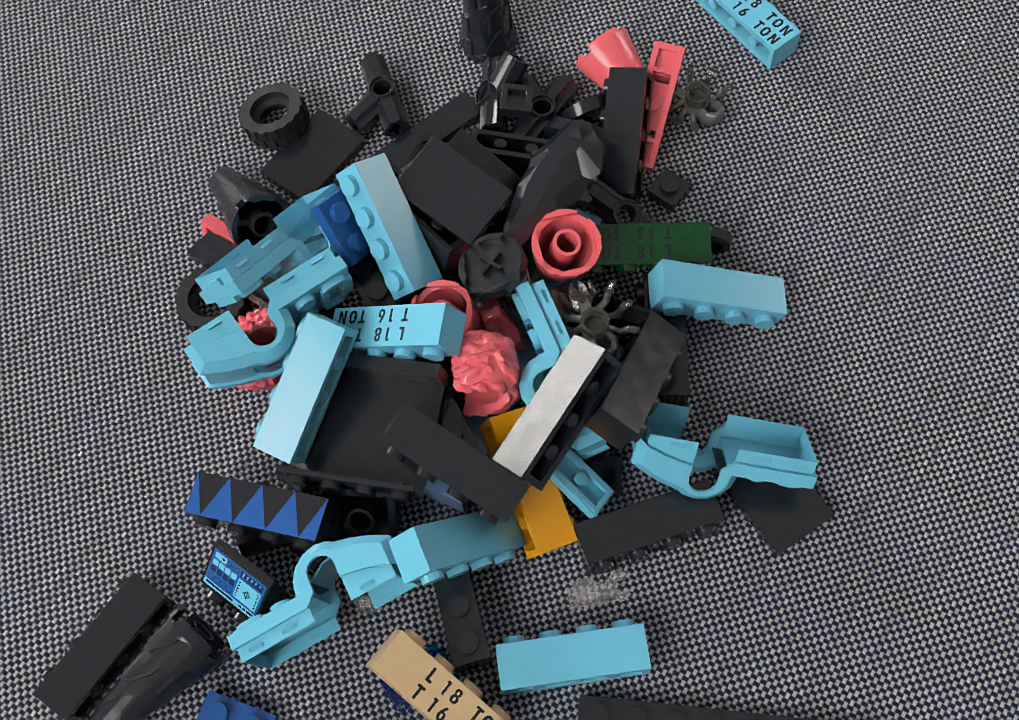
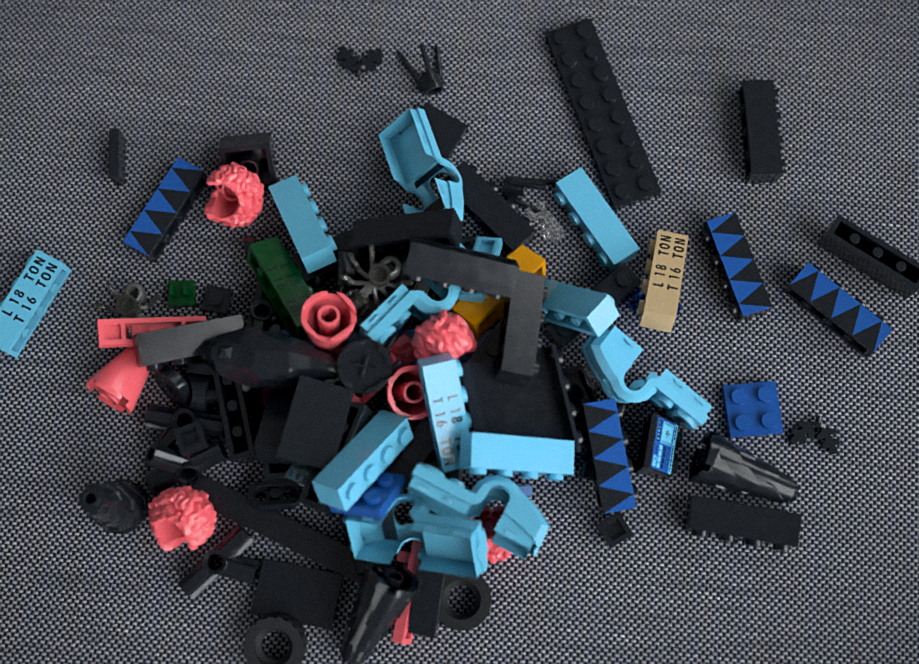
camera: 120 degrees left, 10 degrees up
(179, 492) = (614, 530): none -> black plate
(439, 72) = (181, 517): none -> coral hair
(662, 576) = (516, 187): none -> black plant
(692, 158) = (182, 294): none -> dark green tile
(782, 240) = (236, 196): none -> coral hair
(801, 172) = (165, 210): none -> black brick
(828, 274) = (253, 152): none -> black slope
(864, 531) = (431, 82): none -> black plant
(890, 144) = (117, 156): none -> black tile
(921, 467) = (367, 64): none -> black animal

